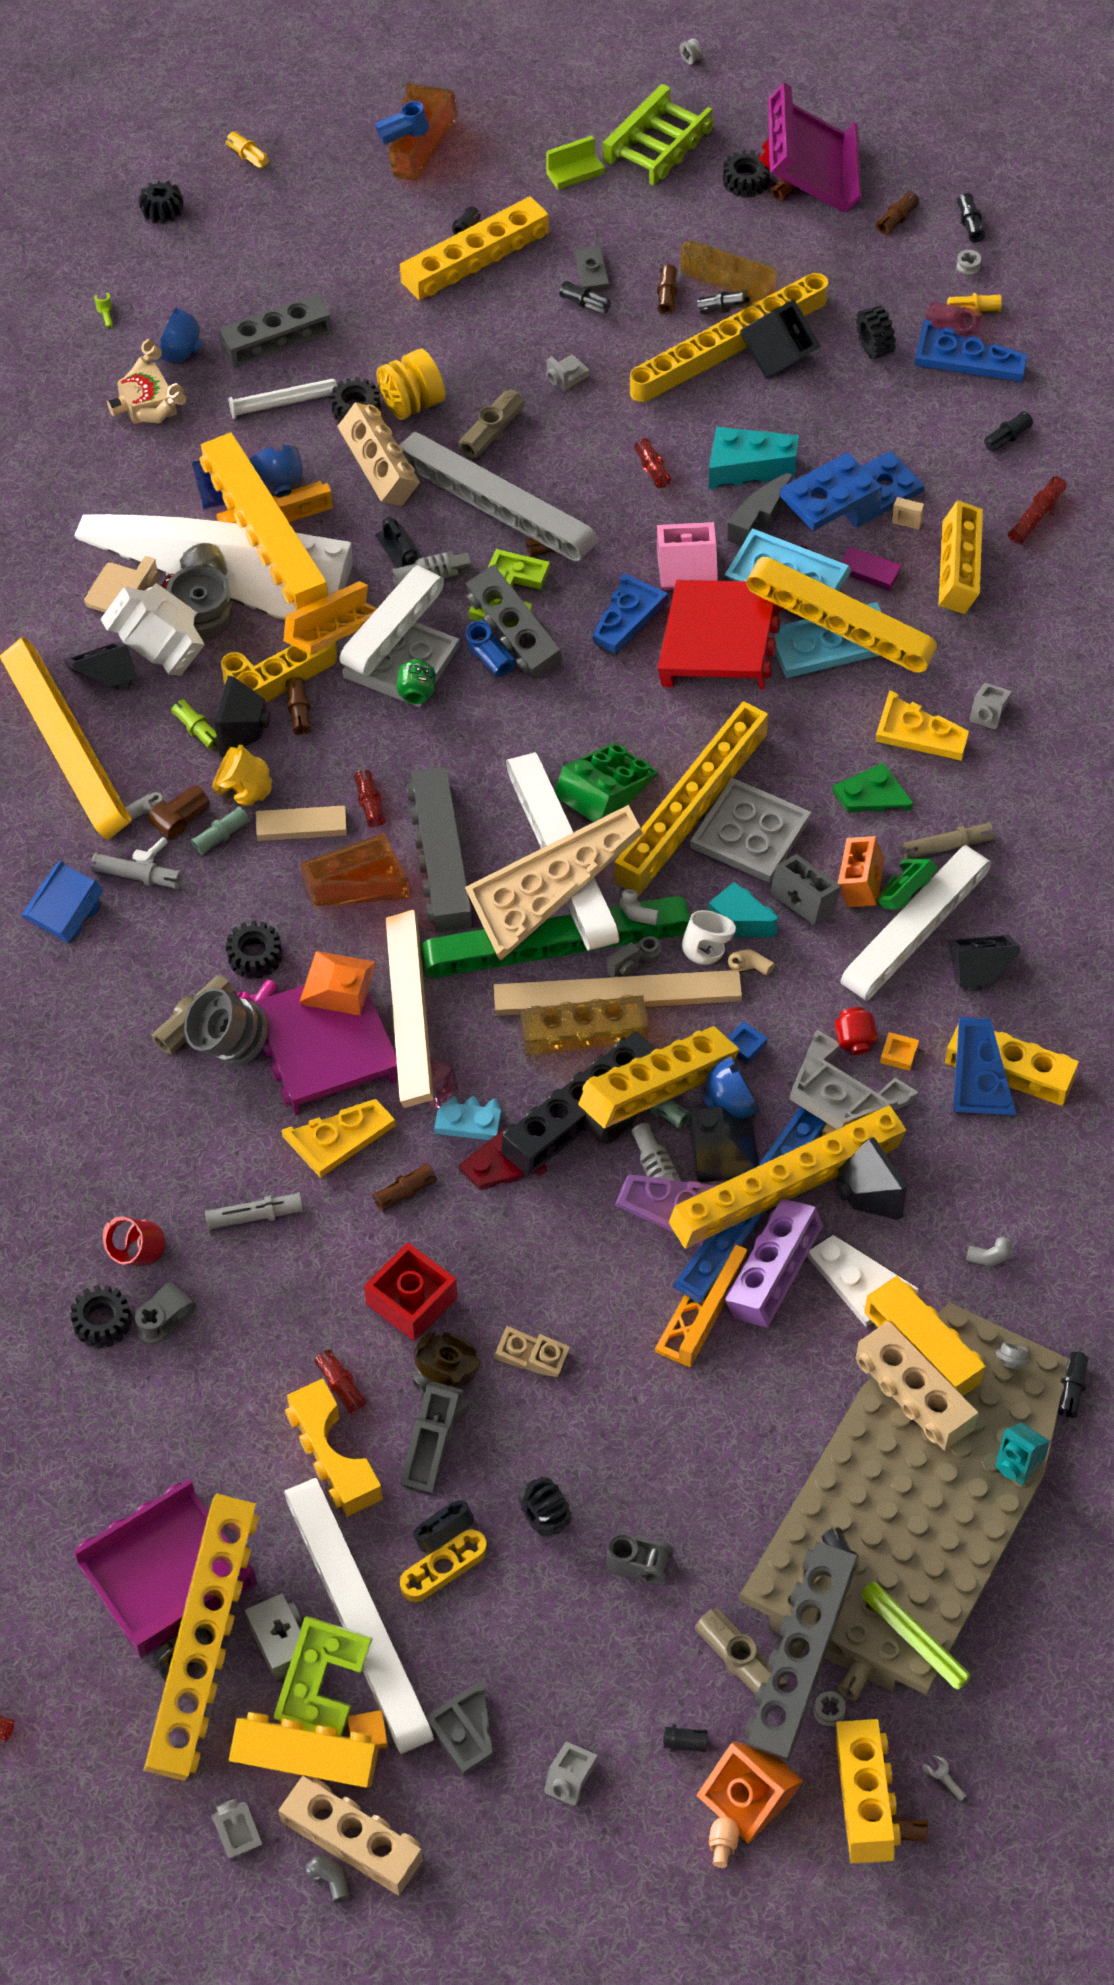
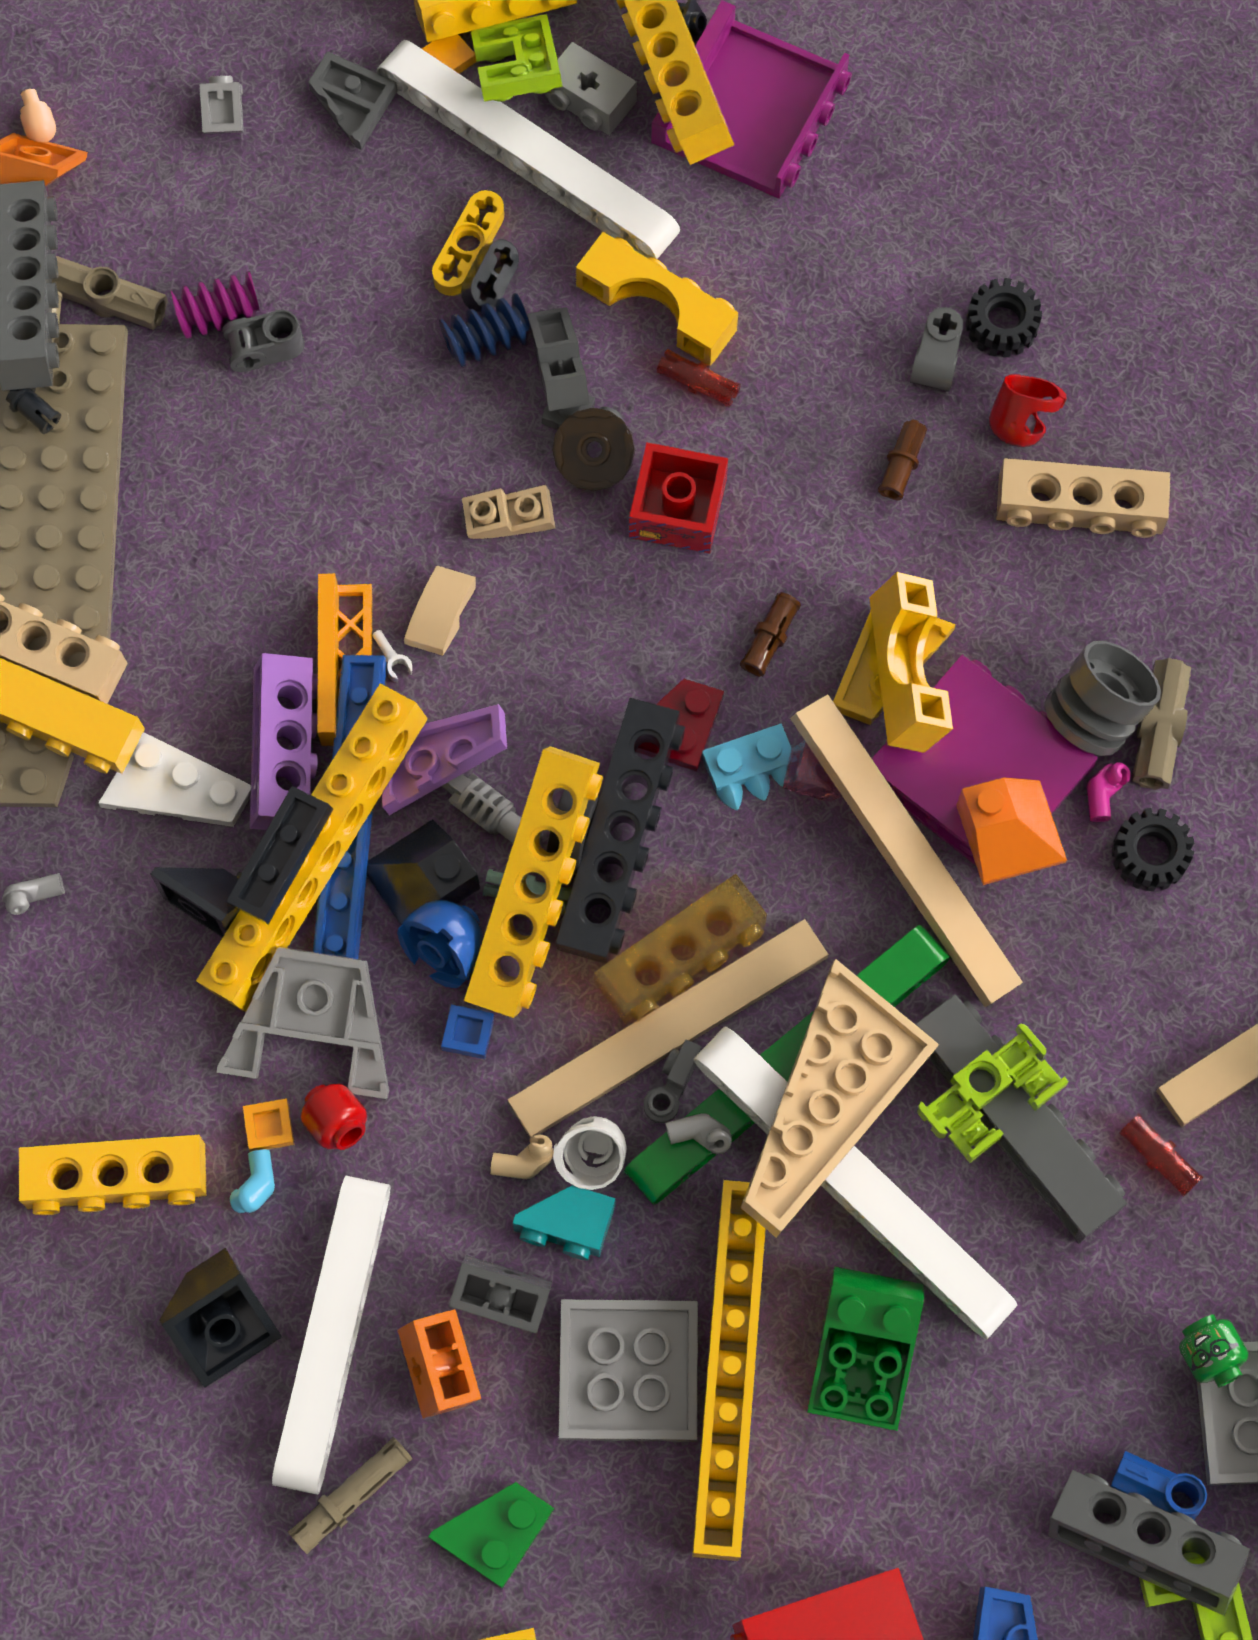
camera: 150 degrees right, 15 degrees up
(173, 1200) = (1102, 486): none -> tan brick
(238, 1256) = (902, 460): none -> reddish brown axle
(254, 1211) = (908, 528): light grey pin -> none
(352, 1065) = (901, 623): none -> yellow arch
(355, 874) = (1093, 1014): clear orange wedge -> none
(426, 862) = (1013, 1060): none -> lime piece
(471, 1481) = (486, 330): none -> dark blue piece
(544, 1506) = (389, 334): black gear -> none
(618, 1302) = (439, 610): none -> tan slope
(659, 1599) = (215, 305): none -> magenta piece
(667, 1290) = (391, 655): none -> white hand
(685, 1739) = (125, 188): black pin -> none
(815, 1153) = (280, 855): none -> black plate
(899, 889) = (370, 1375): green wing -> none
(919, 1021) = (258, 1186): none -> medium azure arm
(979, 1070) = (139, 1118): blue wing -> none

